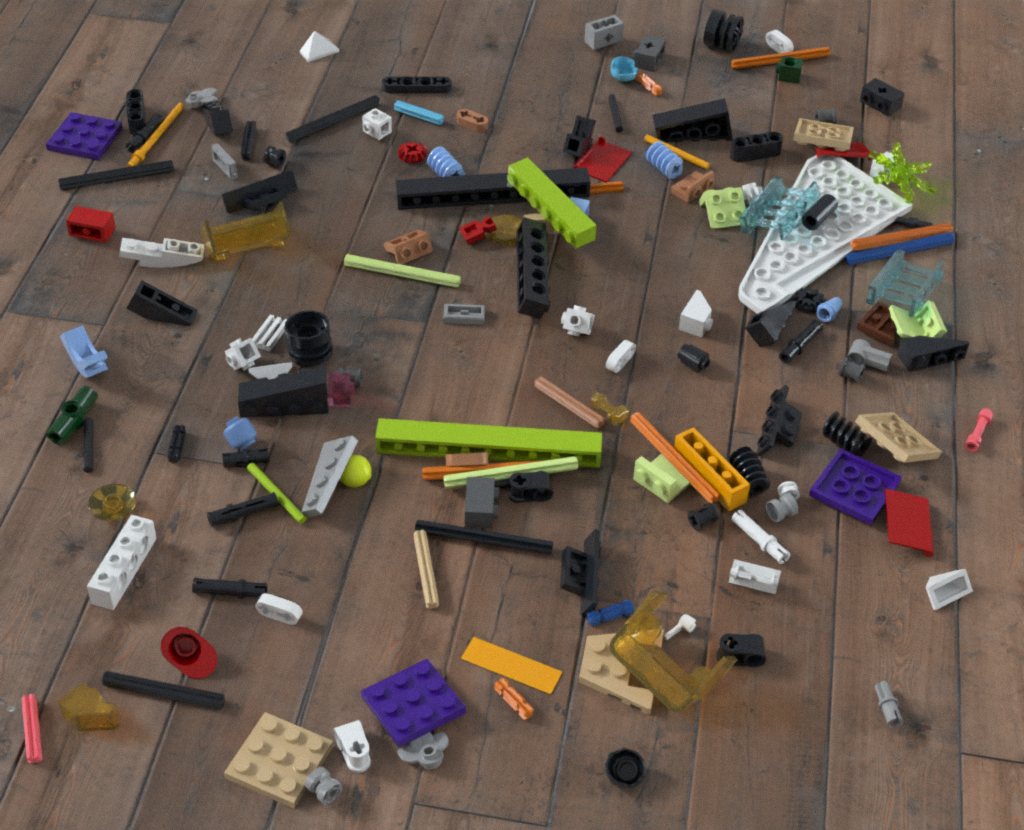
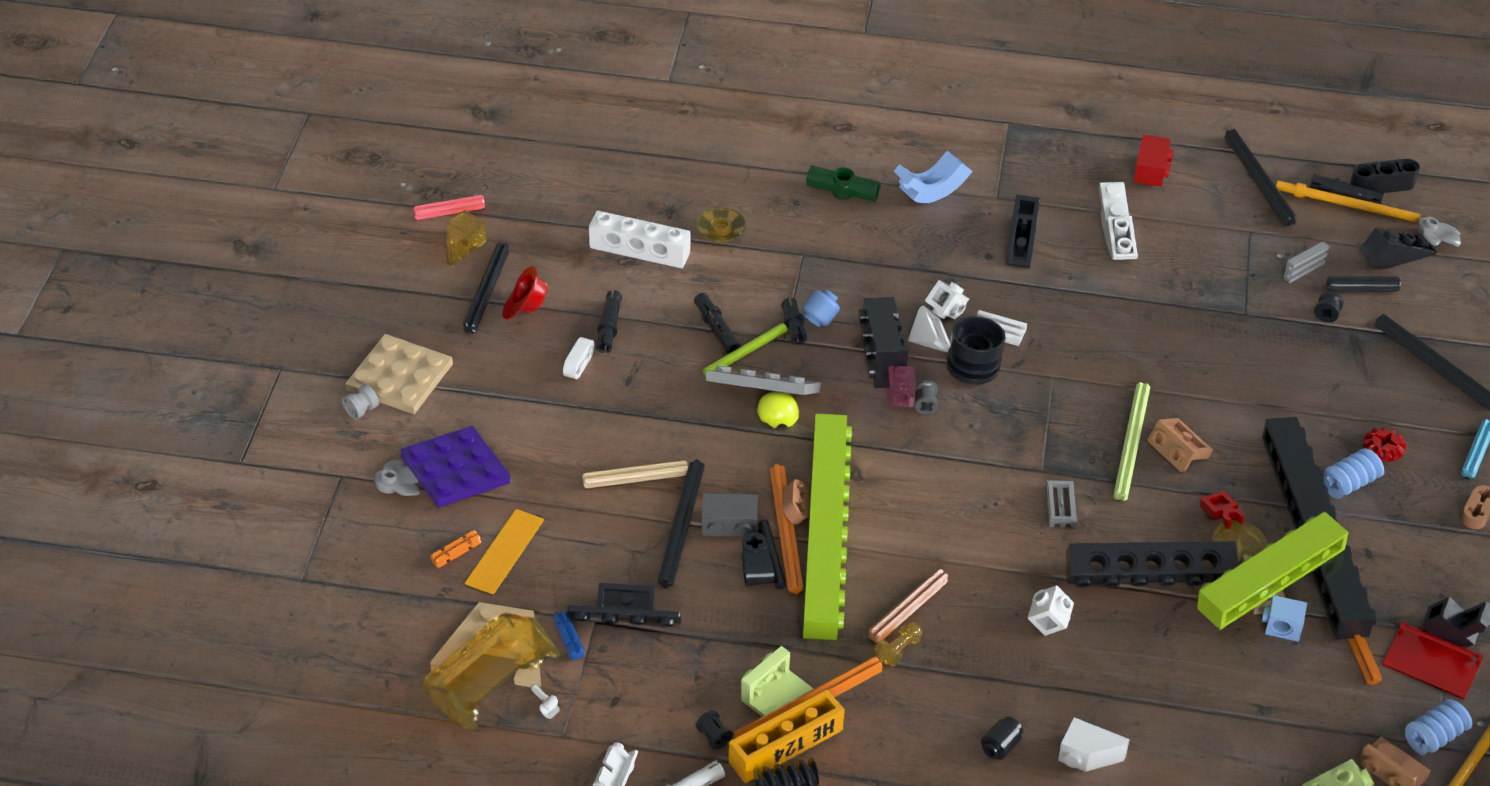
camera: 90 degrees right, 0 degrees up
(84, 136) = (1329, 142): dark purple plate -> none
(88, 445) = (807, 204): black bar -> none
(176, 443) = (812, 266): black axle -> none
(246, 234) = (1157, 279): clear yellow windscreen -> none
(260, 193) = (1251, 300): black bracket -> none
(353, 745) = (407, 421): white piece -> none
(377, 124) = (1425, 398): white brick -> none
(505, 473) = (777, 544): yellowish green axle -> none
(620, 356) = (995, 658): white beam -> none
(625, 768) = (349, 632): black hair -> none
(746, 648) = (504, 751): black piece -> none

